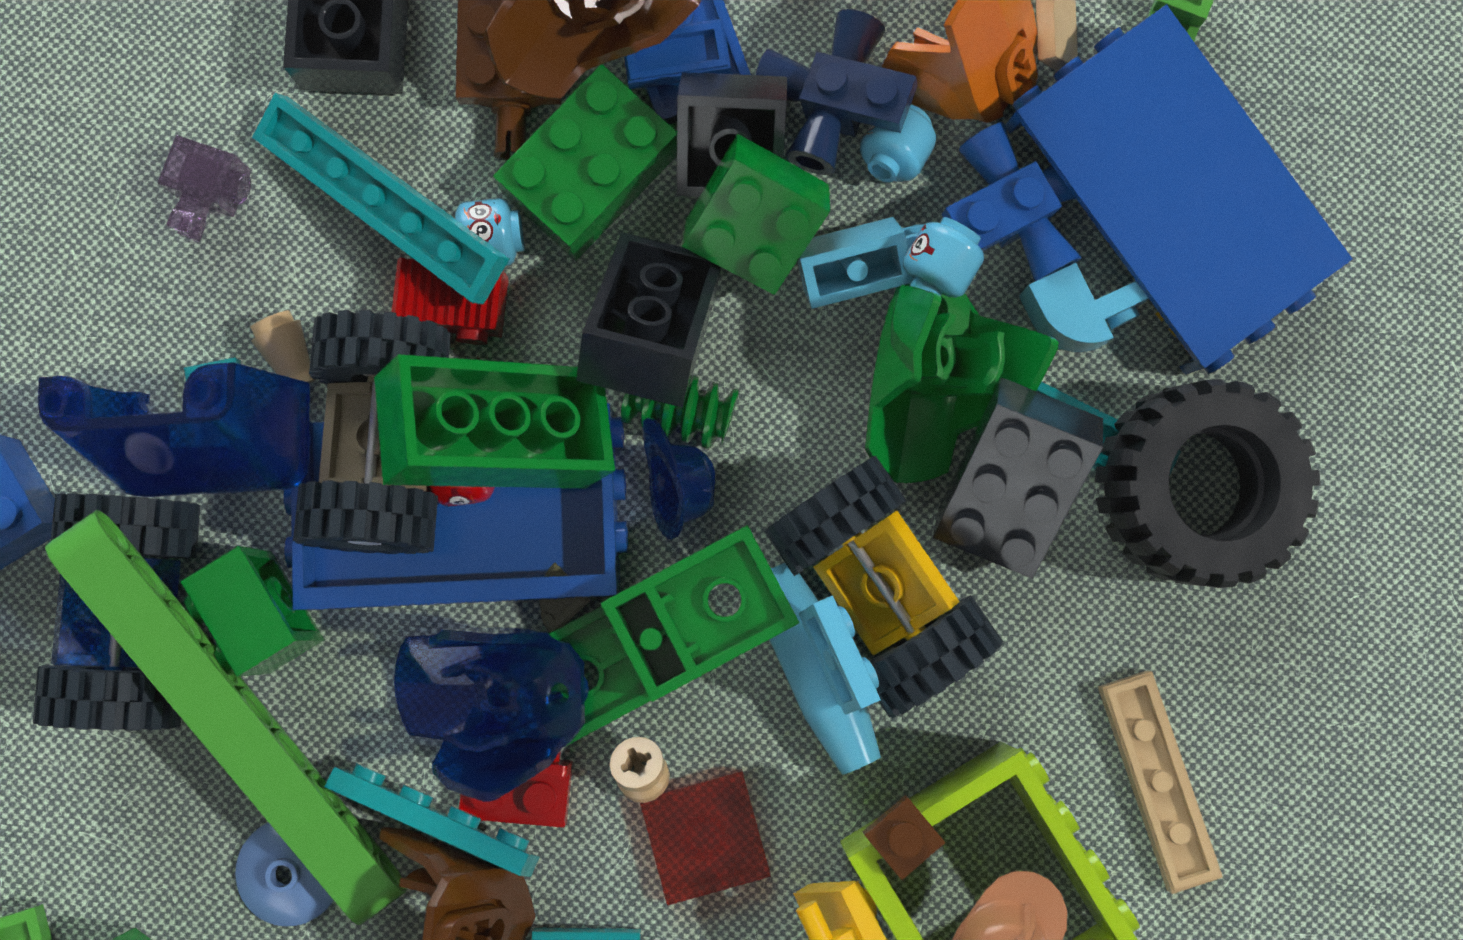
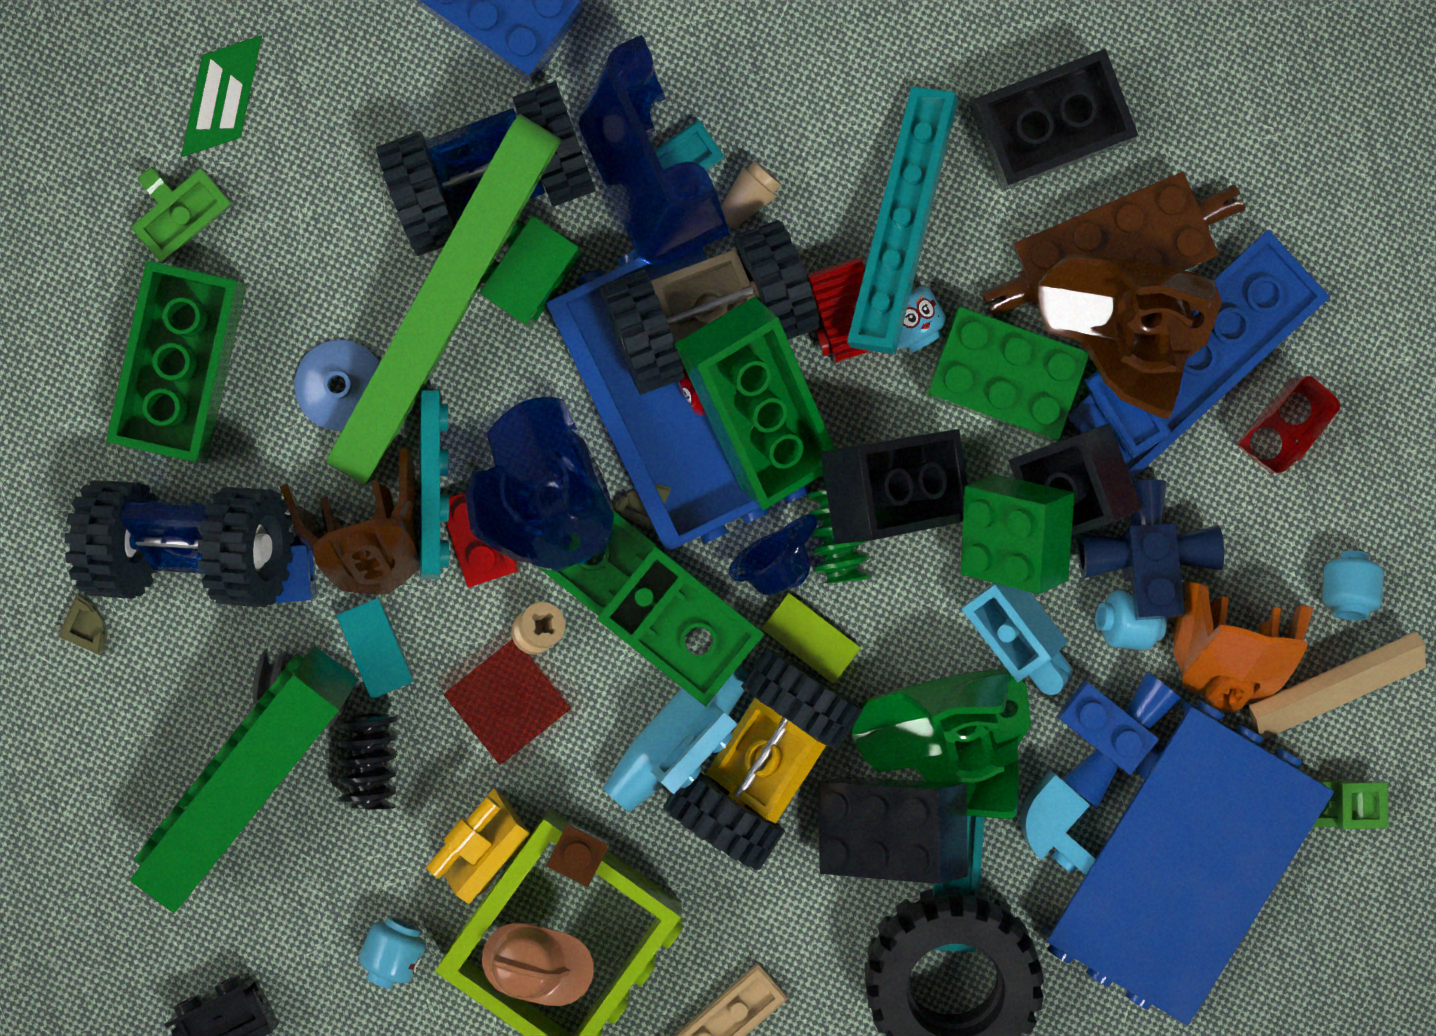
camera: 70 degrees right, 5 degrees up
(202, 181) = (858, 65): clear purple brick -> none
(776, 482) = (810, 638): none -> lime tile
(944, 258) = (1041, 699): medium azure head -> none

